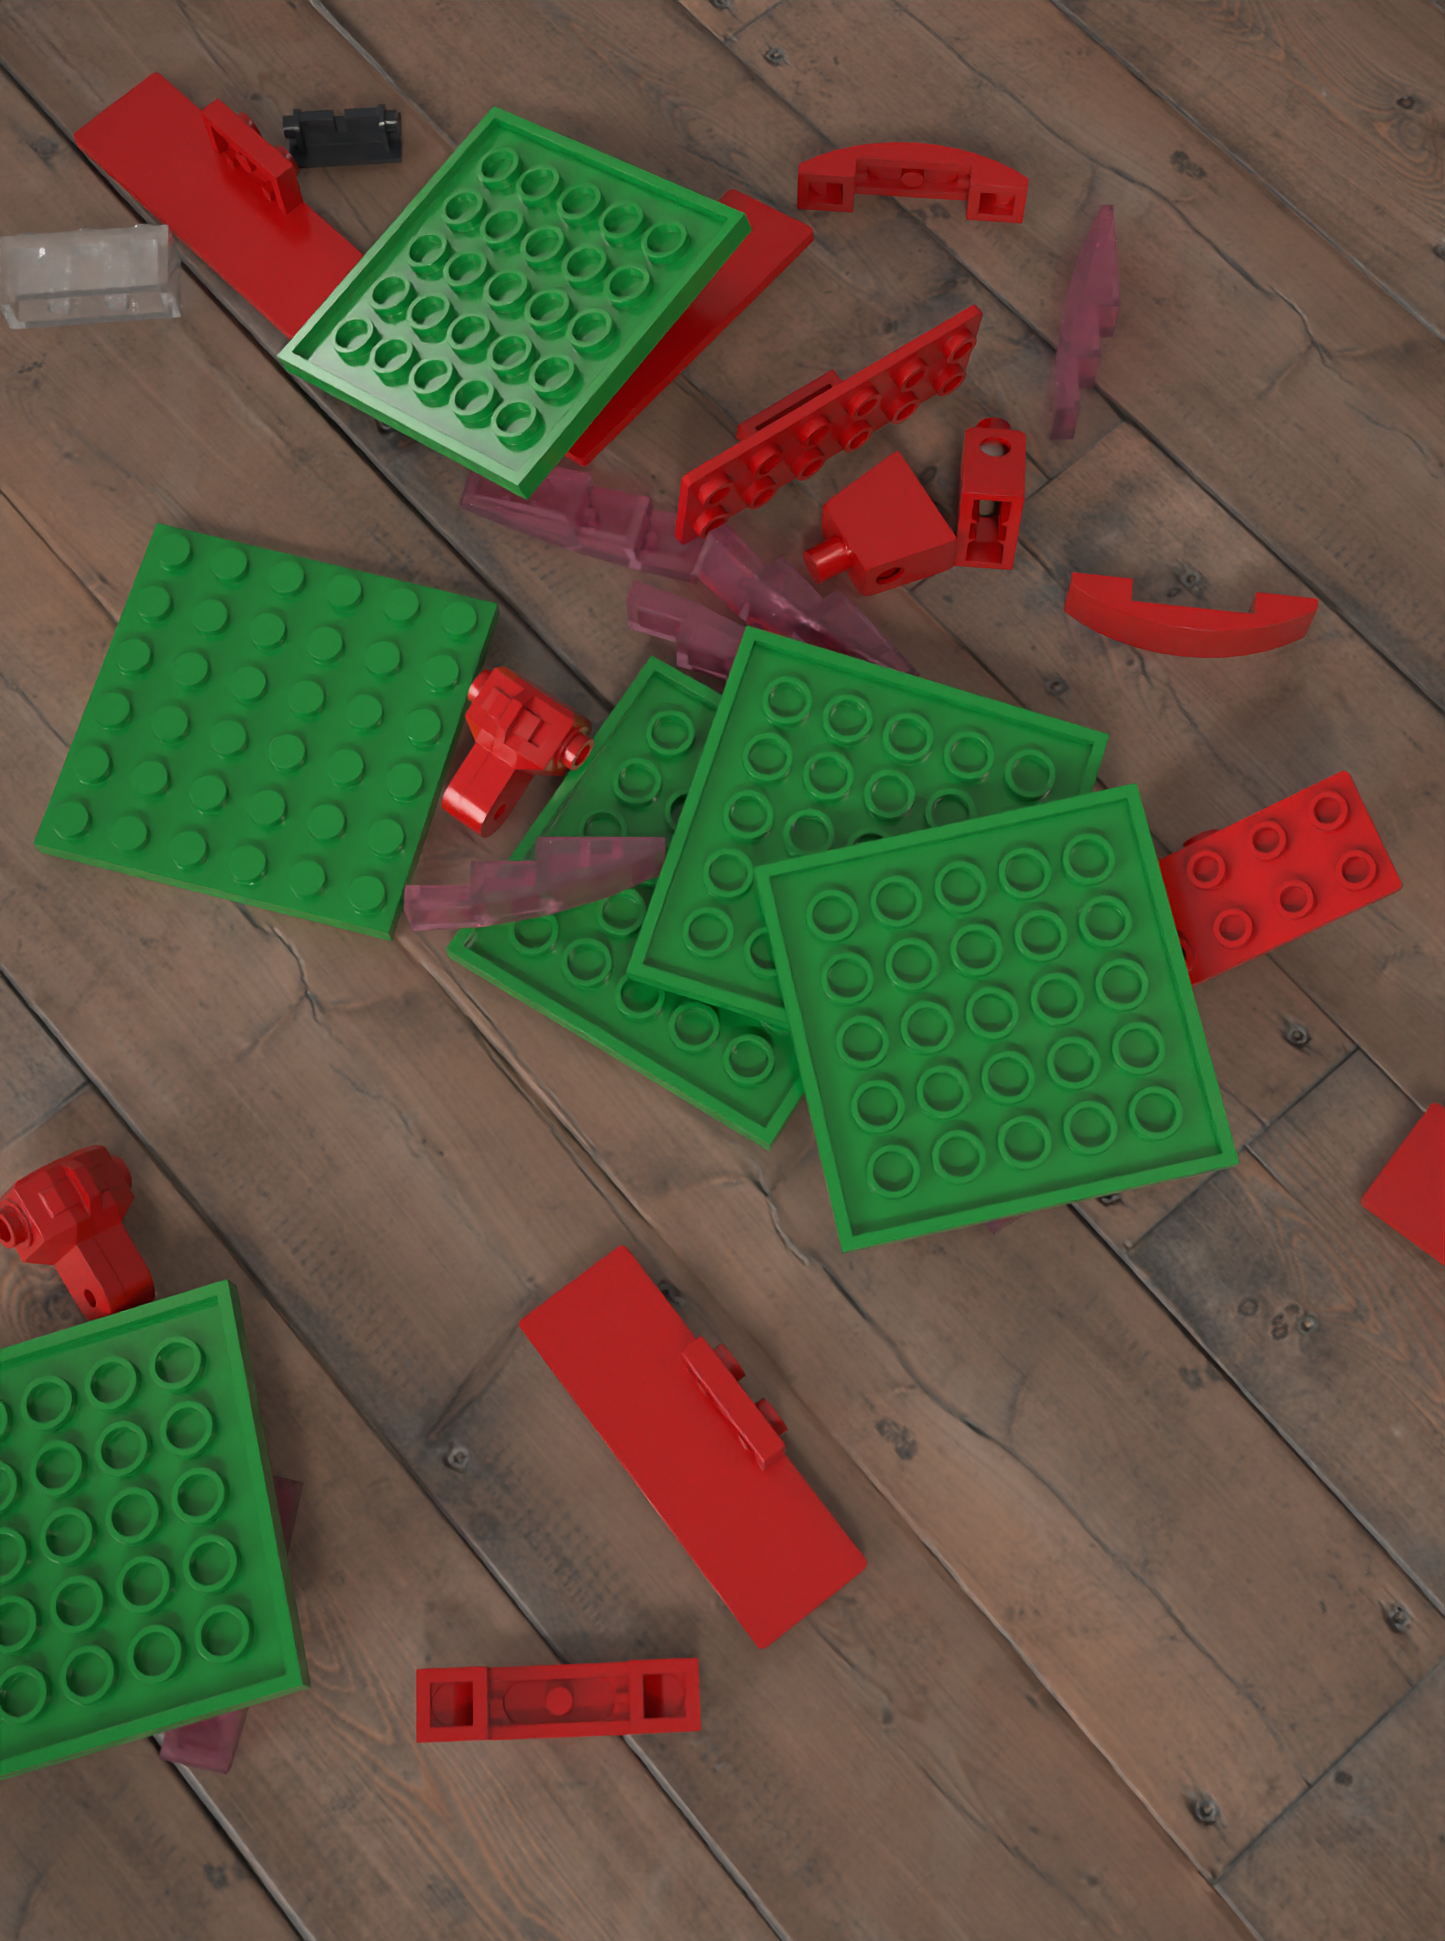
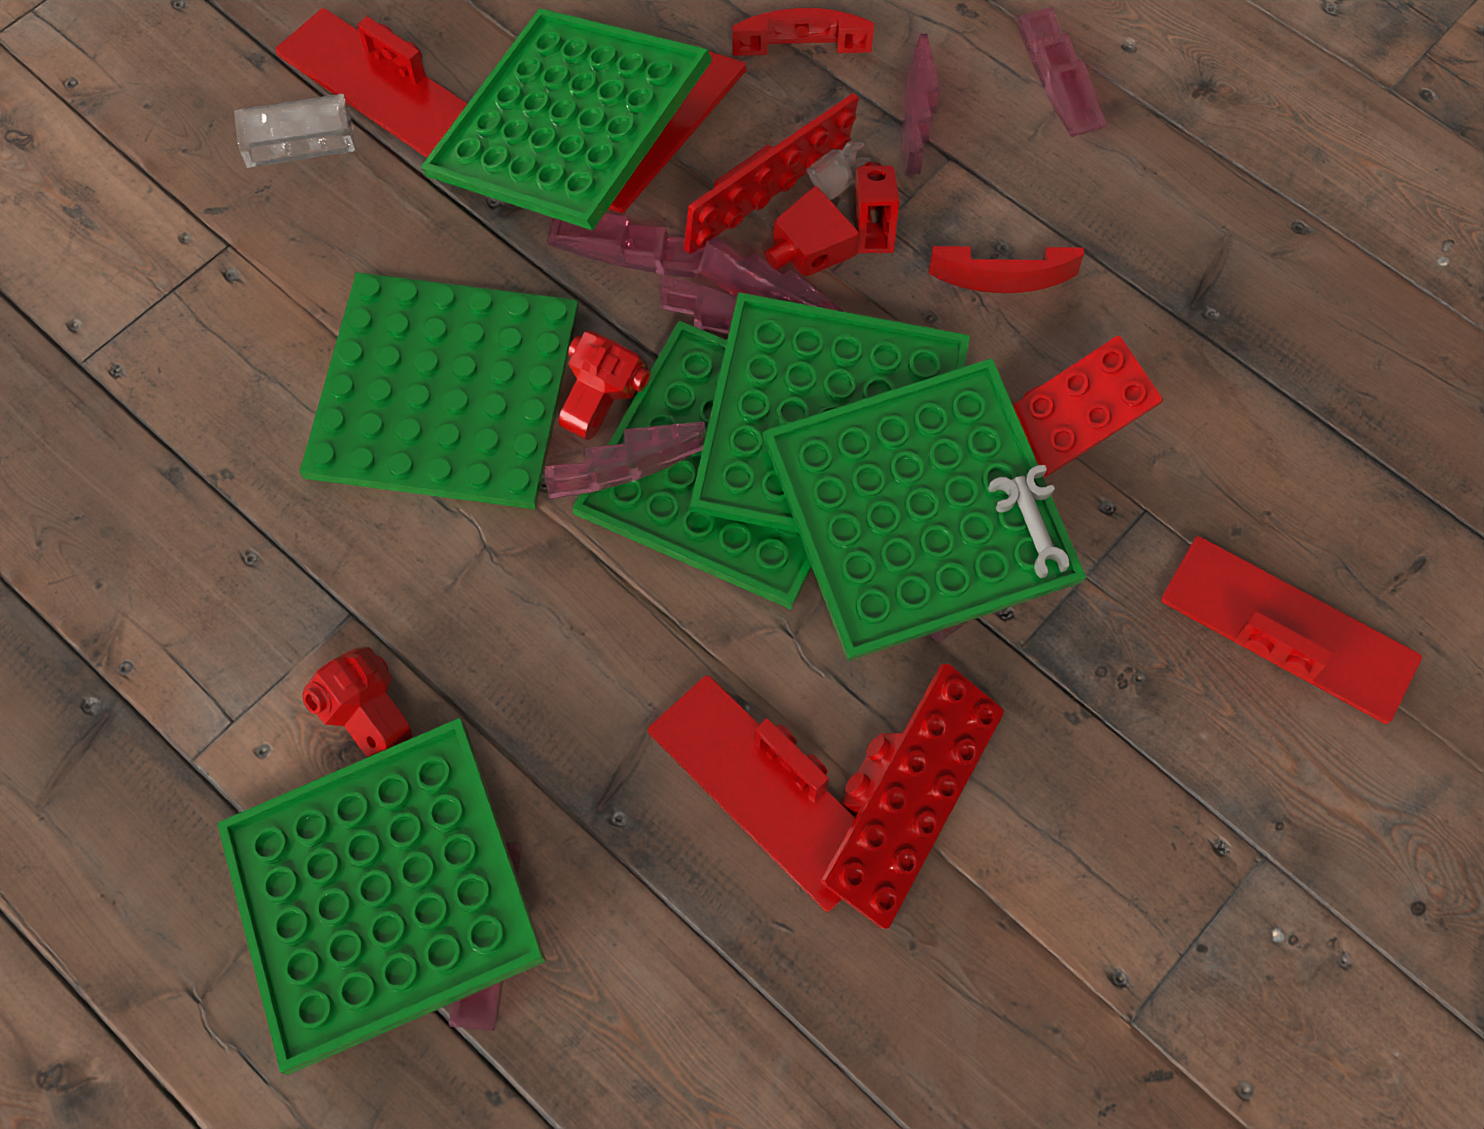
camera: 10 degrees left, 5 degrees down
(353, 139) = (458, 35): black hinge -> none
(557, 1700) = (703, 958): red slope -> none
(911, 1477) = (908, 794): none -> red bracket
(932, 425) = (835, 169): none -> clear plate
(1157, 1011) = (1026, 492): none -> light grey bar
(1325, 289) = (1060, 73): none -> clear pink slope

